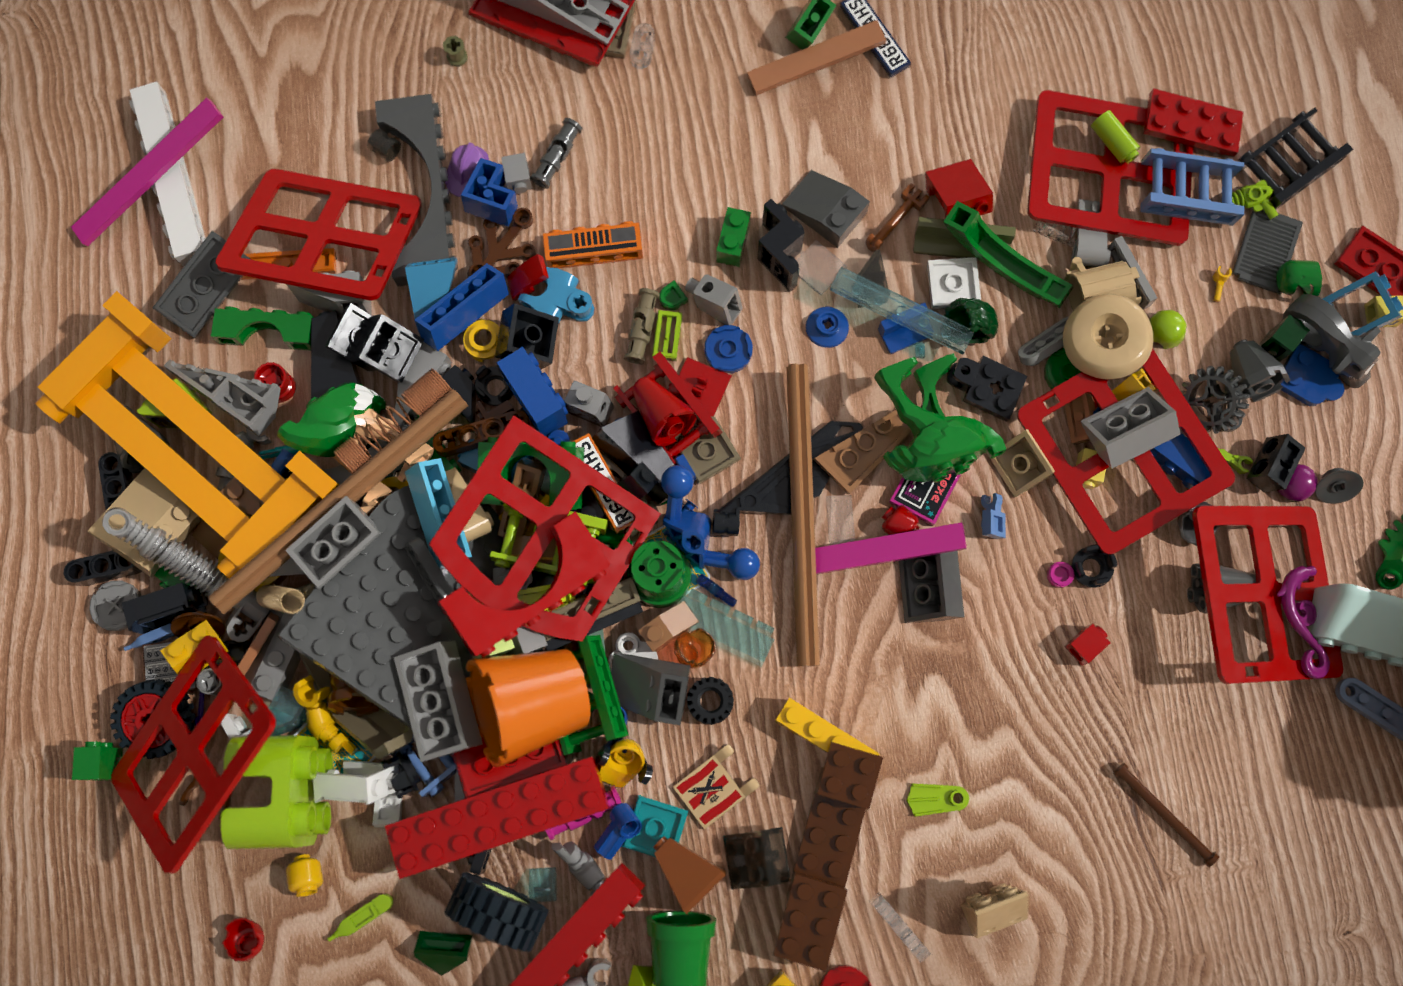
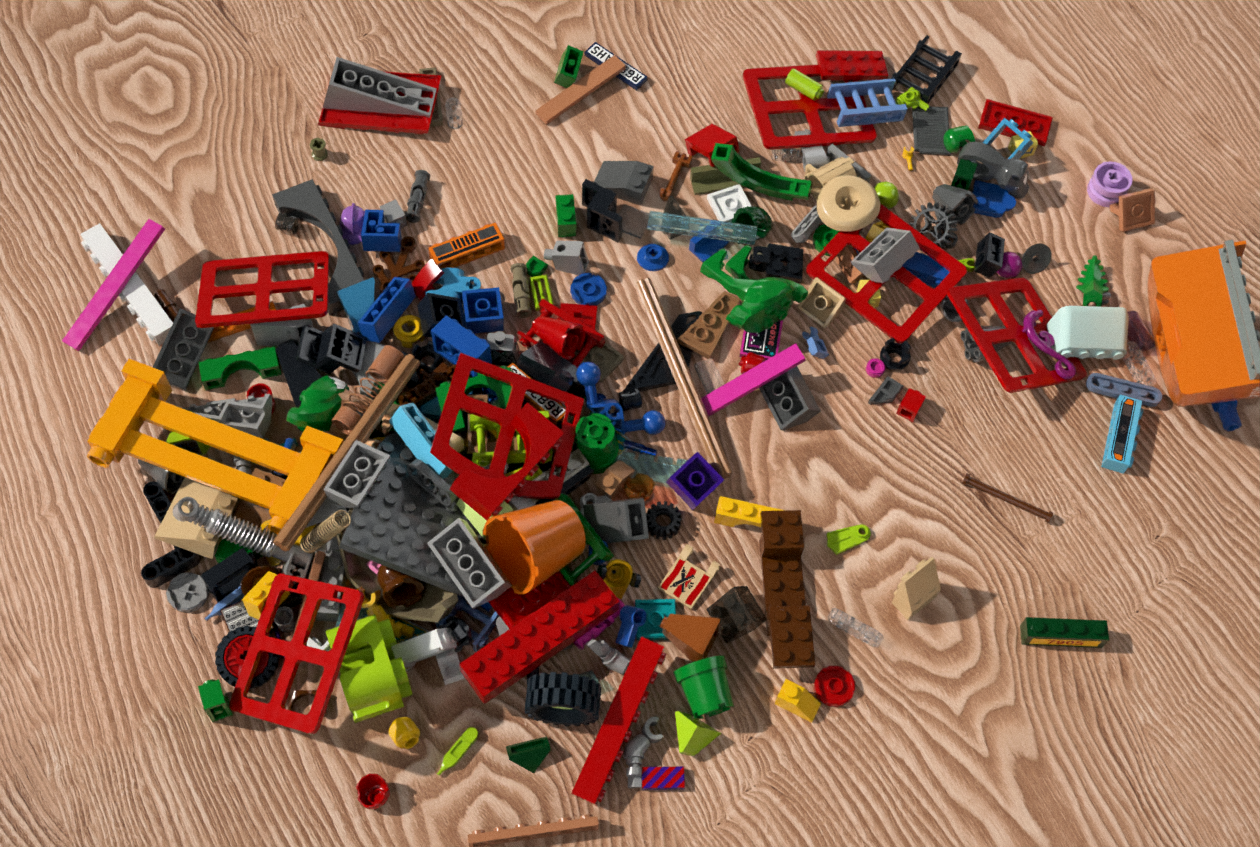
camera: 25 degrees left, 15 degrees down
(207, 217) = (167, 305): none -> reddish brown pin
(582, 342) = (483, 310): none -> blue brick
(766, 664) = (695, 480): none -> dark purple brick
(1062, 613) = (886, 392): none -> dark grey tile
(1357, 777) = (1122, 434): none -> medium azure brick

